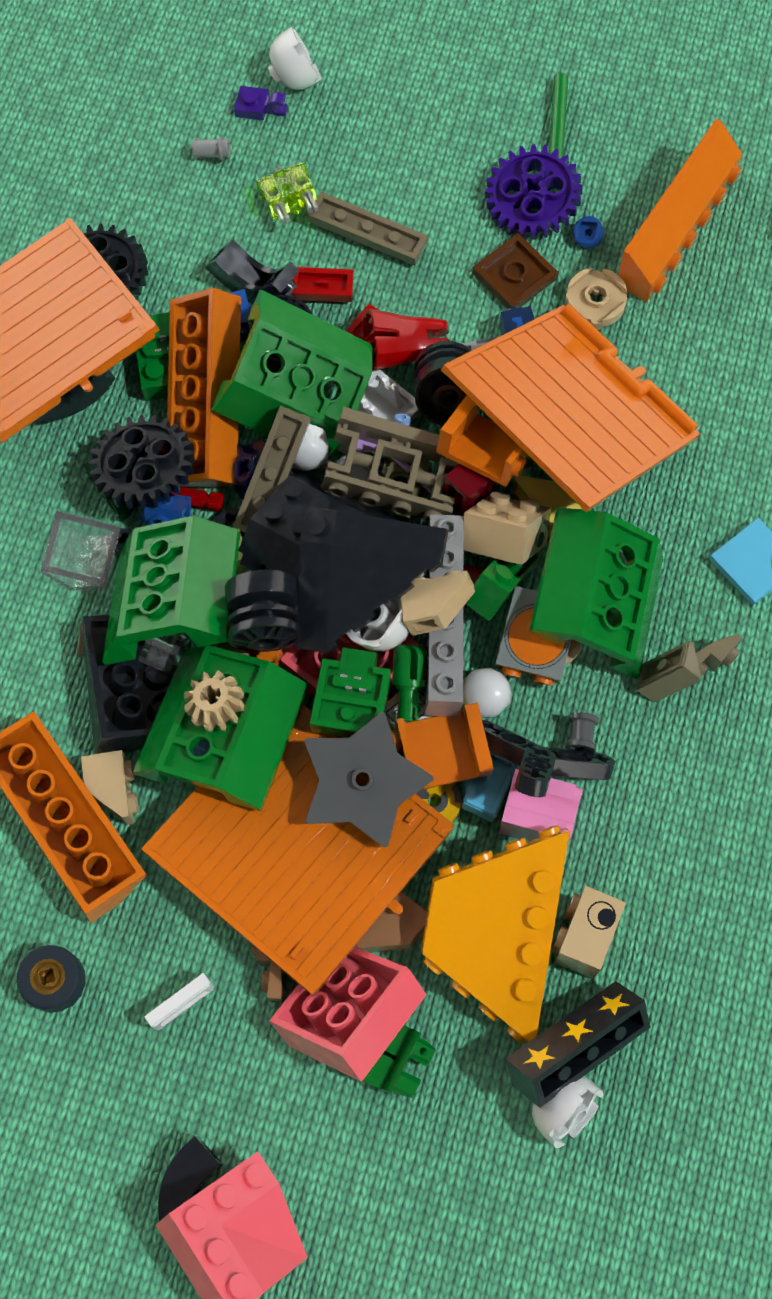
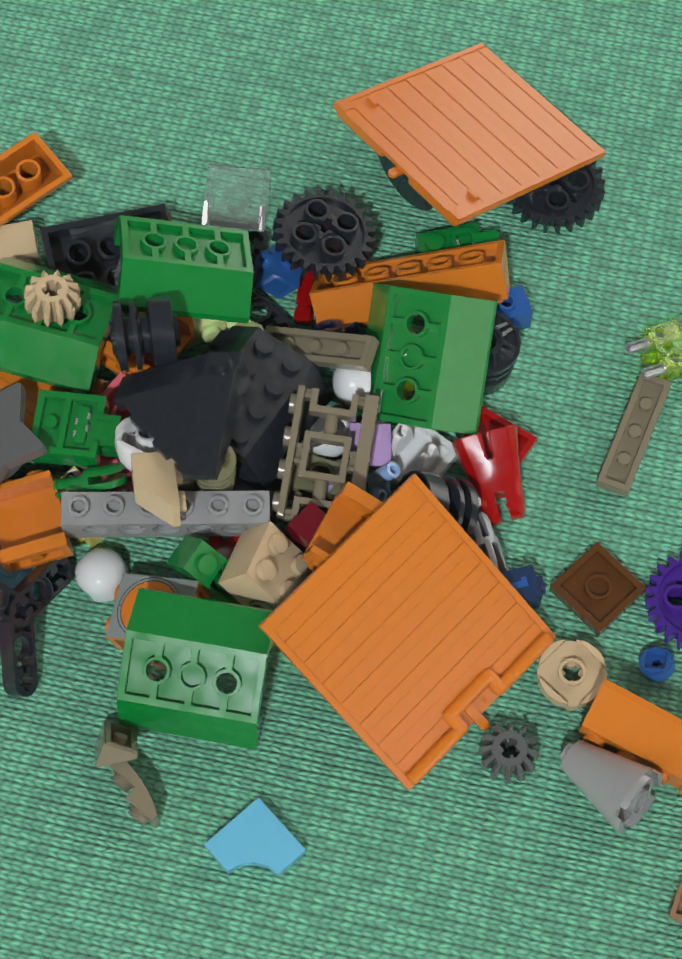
camera: 85 degrees right, 5 degrees down
(240, 271) = (556, 323): black arch -> none
(324, 284) = (559, 394): red plate -> none
(582, 732) = (56, 665): dark grey bush -> none
(670, 350) = (516, 764): none -> dark grey gear
(700, 270) = (611, 782): none -> light grey cone

